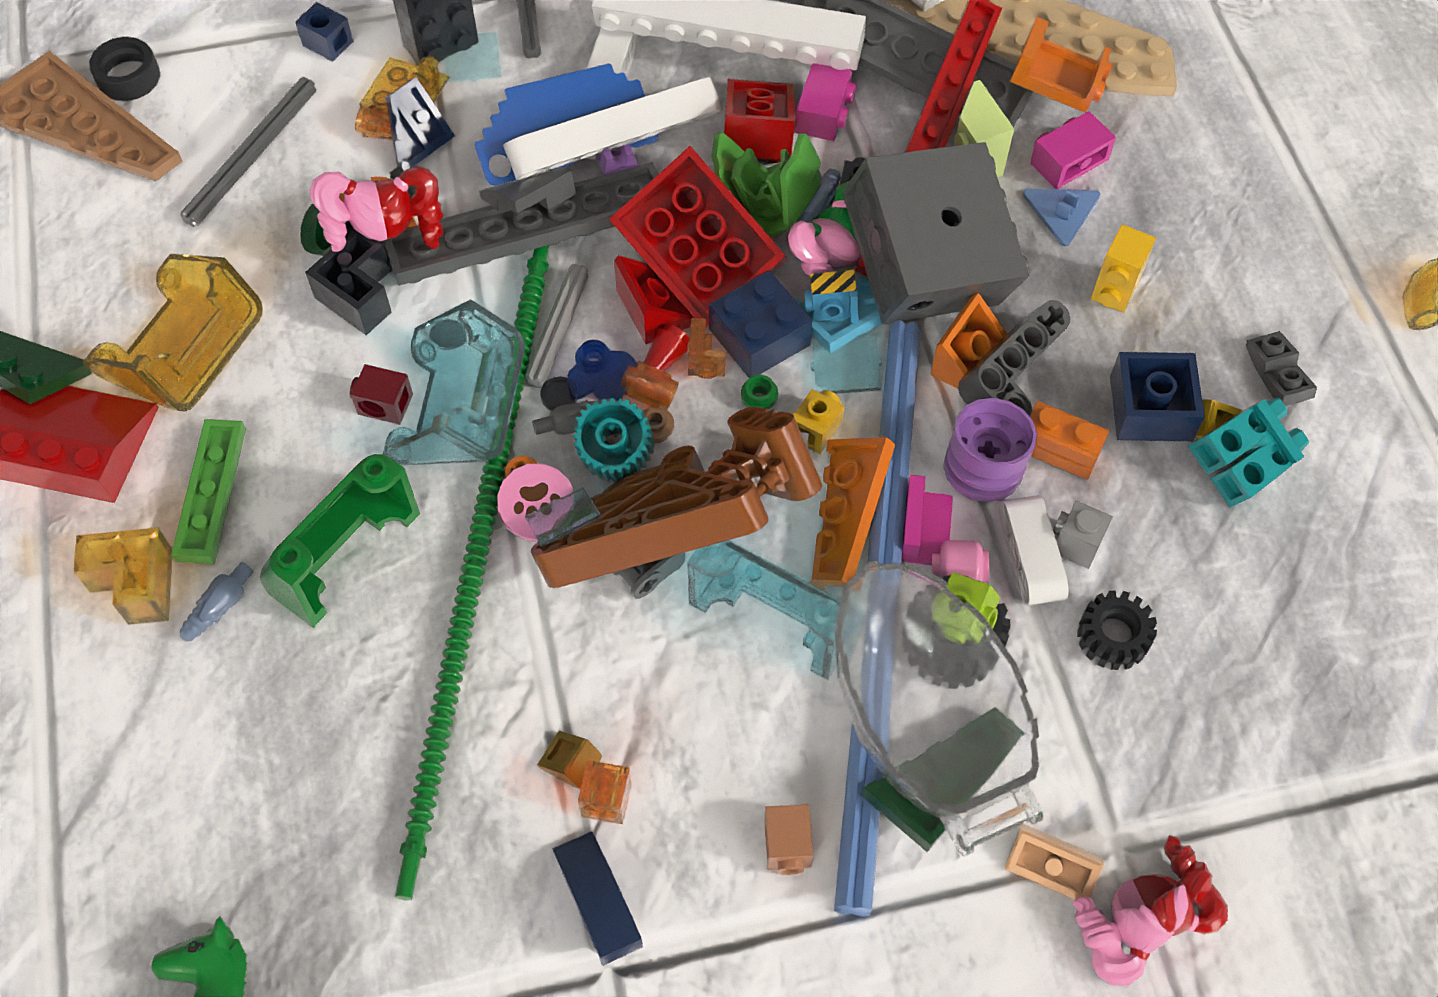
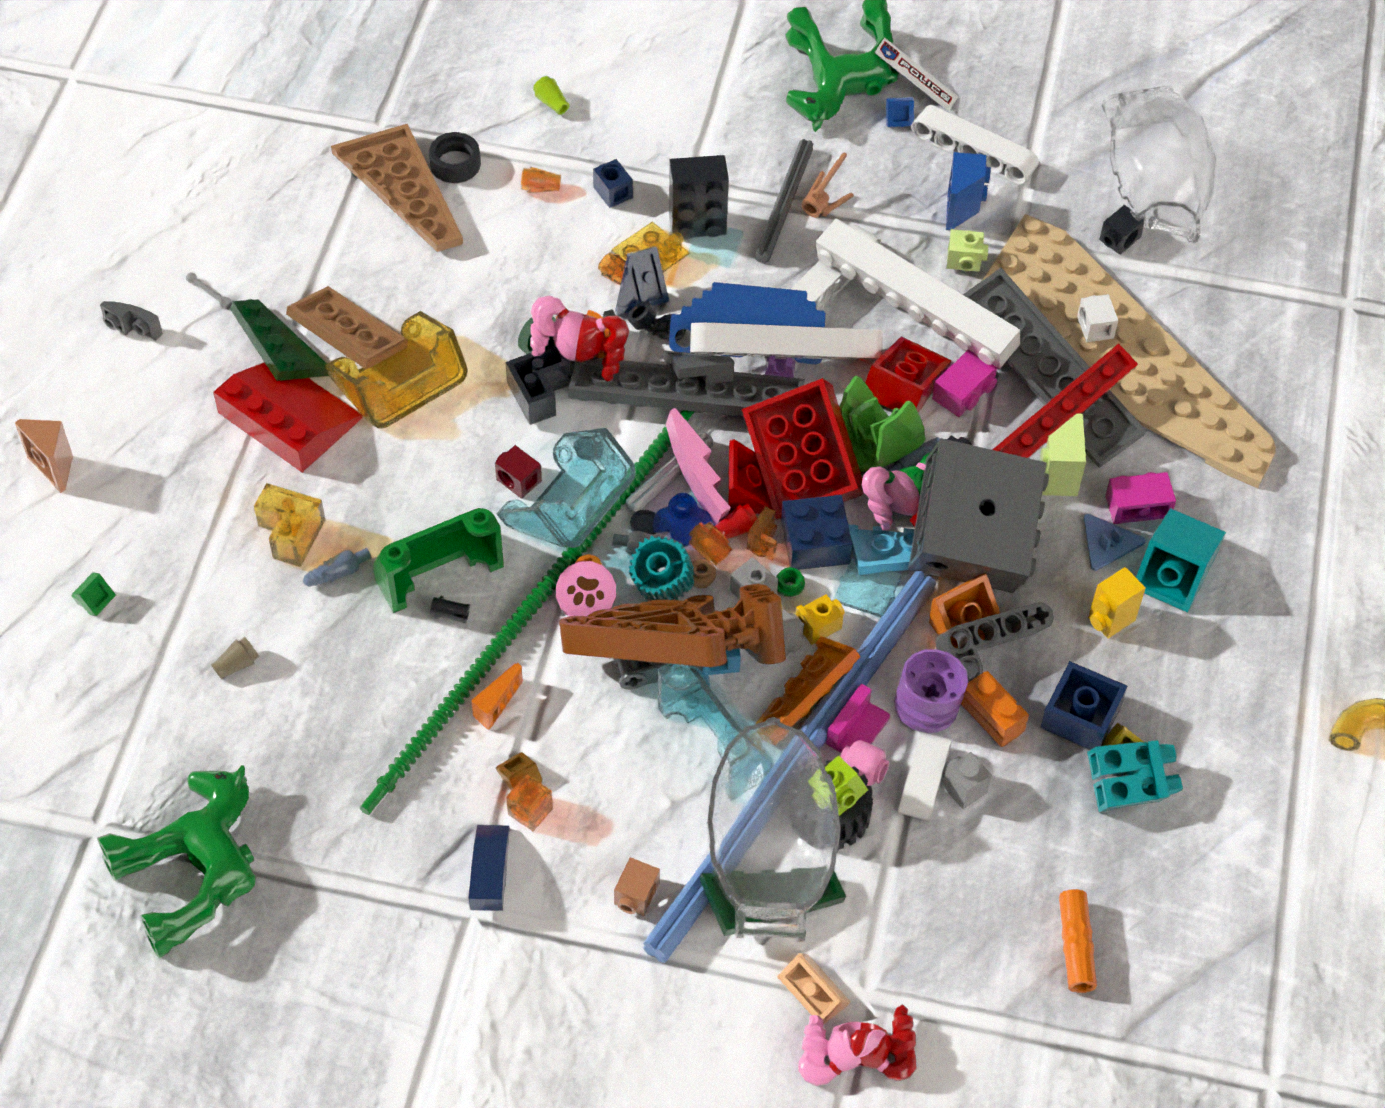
camera: 25 degrees right, 5 degrees down
(87, 307) = (347, 327): none -> medium nougat tile
(139, 775) = (235, 658): none -> dark tan cone
(208, 492) = (368, 490): bright green plate -> none
(237, 59) = (539, 180): none -> clear orange cone
(248, 152) = (513, 255): dark grey axle -> none
(382, 594) = (449, 609): none -> black pin
(440, 162) = (644, 317): none -> black arm
(493, 683) = (494, 698): none -> orange slope
(562, 516) = (595, 607): clear light blue piece -> none
(578, 297) = (692, 458): none -> bright pink slope
(716, 407) = (752, 573): none -> light grey brick
(832, 296) = (879, 532): brick -> none
(1060, 71) = (1160, 430): orange panel -> none
(1126, 611) = (956, 840): black tyre -> none
(1154, 194) = (1179, 559): none -> teal slope
(1278, 368) = (1203, 730): dark grey slope -> none
(1304, 665) = (1077, 941): none -> orange axle

